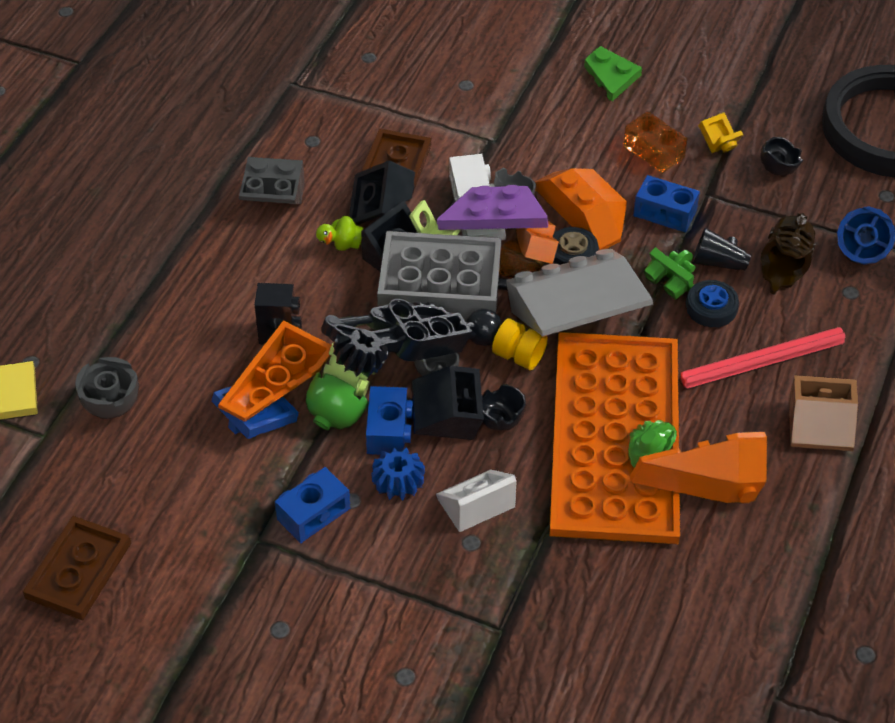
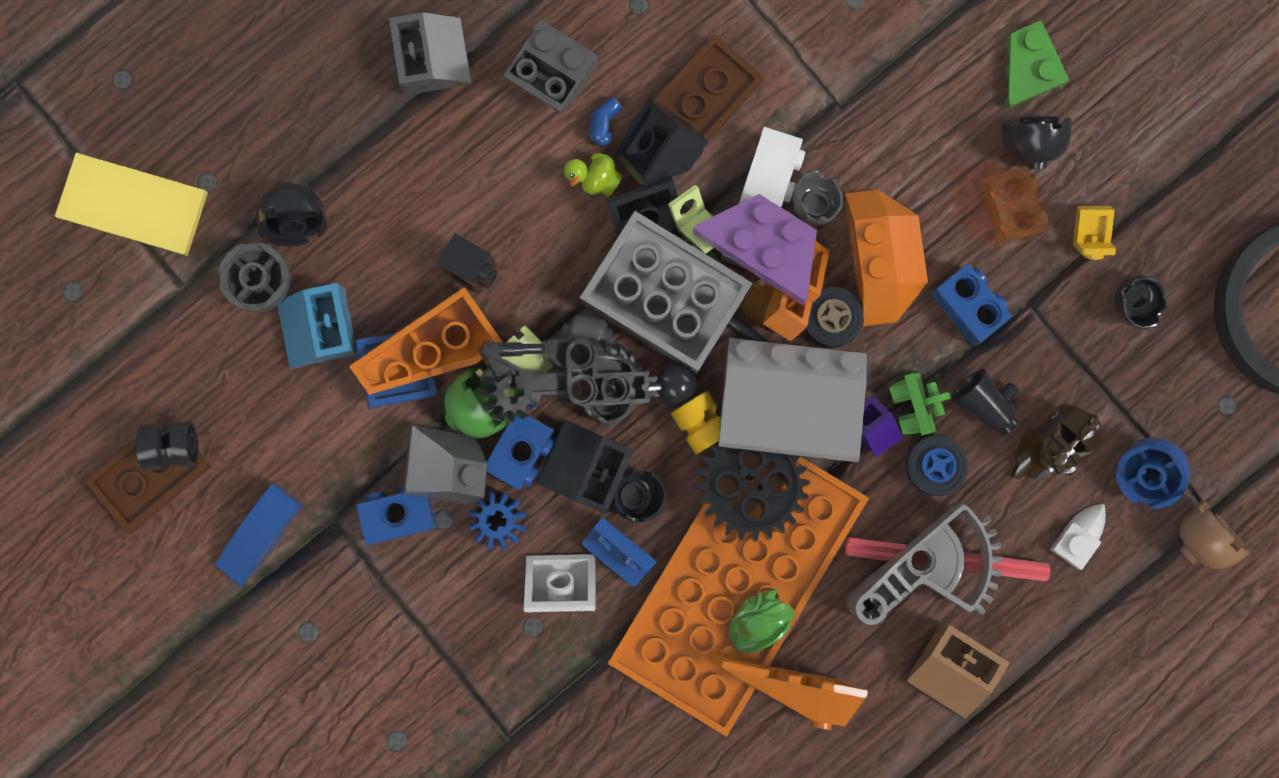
camera: 25 degrees right, 35 degrees up
(90, 521) = (161, 445): none -> black wheel
(116, 337) = (290, 215): none -> black cylinder
(170, 213) = (429, 52): none -> dark grey slope
(174, 404) = (317, 325): none -> dark azure slope
(199, 566) = (258, 534): none -> blue slope
(326, 207) = (600, 121): none -> blue arm
(336, 447) = (444, 466): none -> dark grey slope
(510, 448) = (618, 552): none -> blue bracket
(605, 362) = (775, 506): none -> black gear
(642, 95) = (1036, 140): none -> black cylinder
(661, 297) = (878, 427): none -> dark purple brick
(757, 353) = (941, 572): none -> light grey arm
(849, 308) = (1081, 536): none -> white plate

